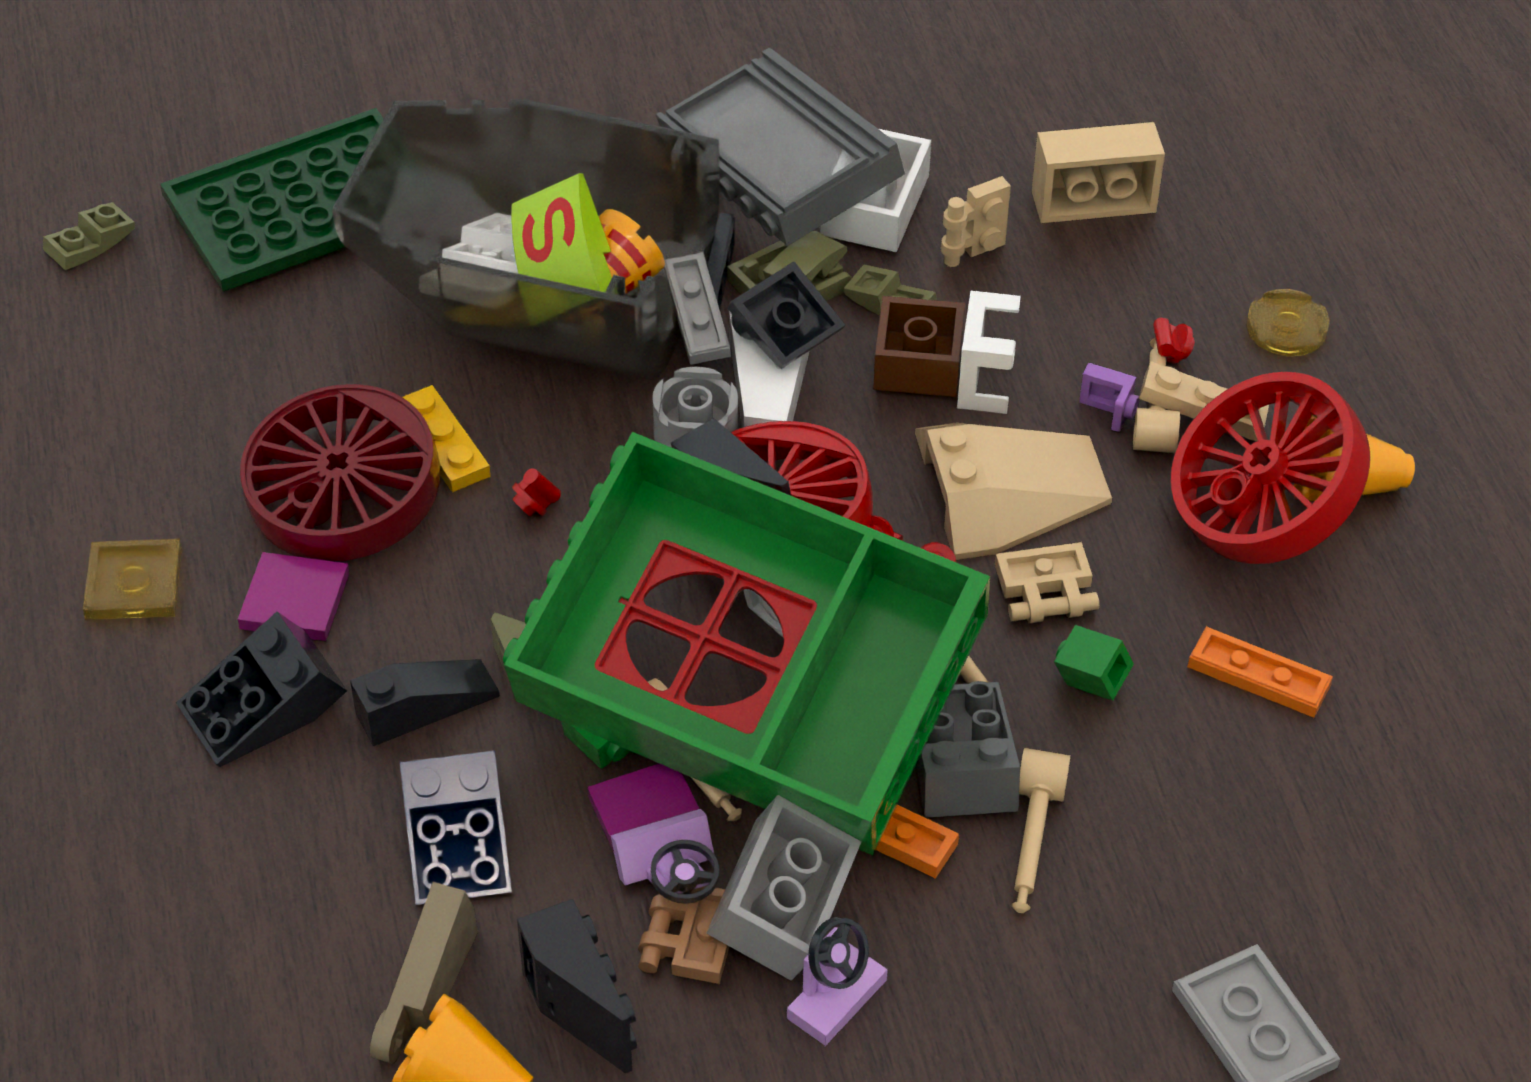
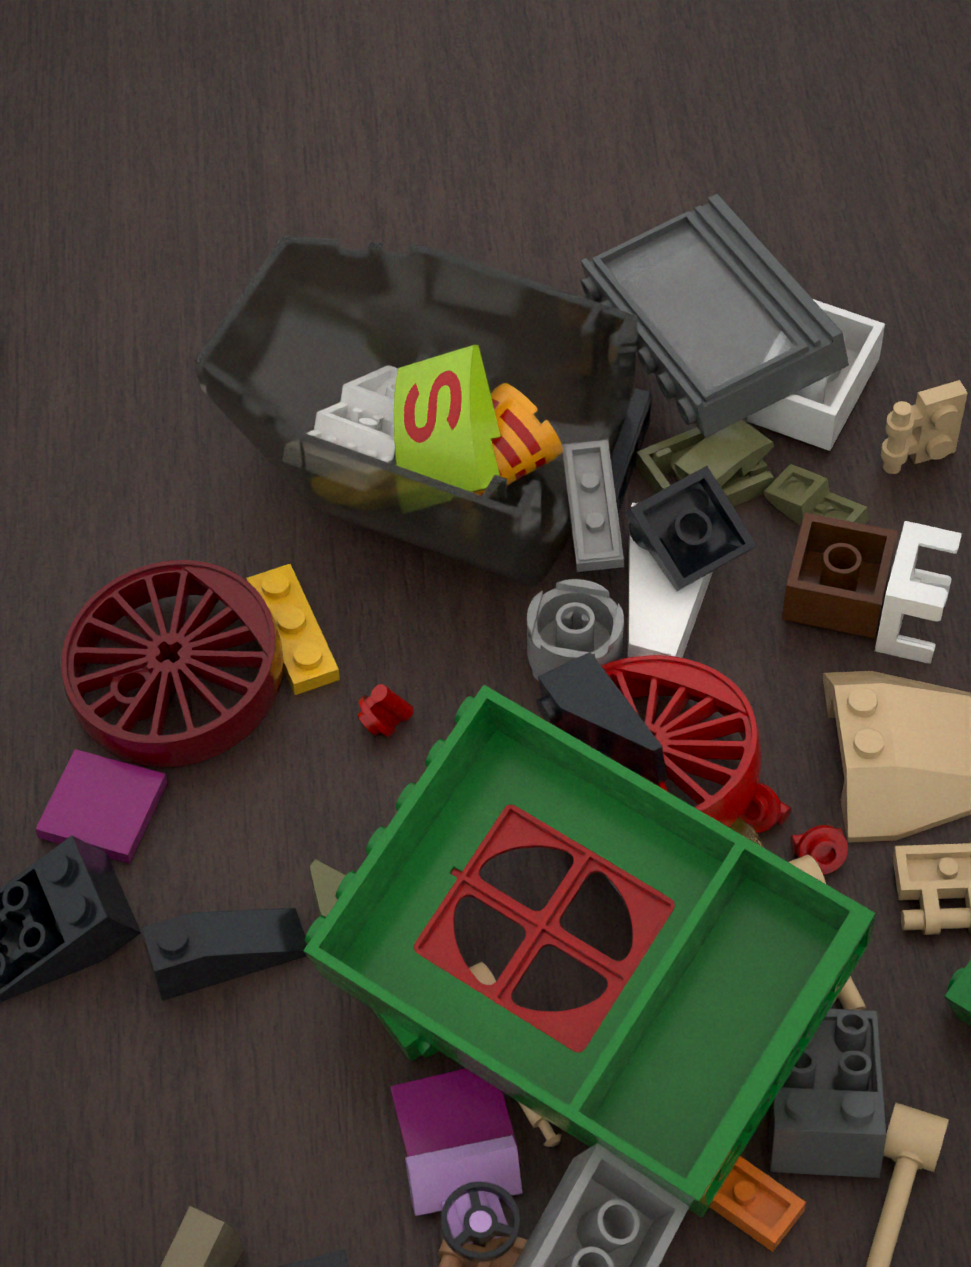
camera: 10 degrees right, 5 degrees up
(271, 202) = (138, 328): dark green plate -> none
(455, 824) = (234, 1122): slope -> none

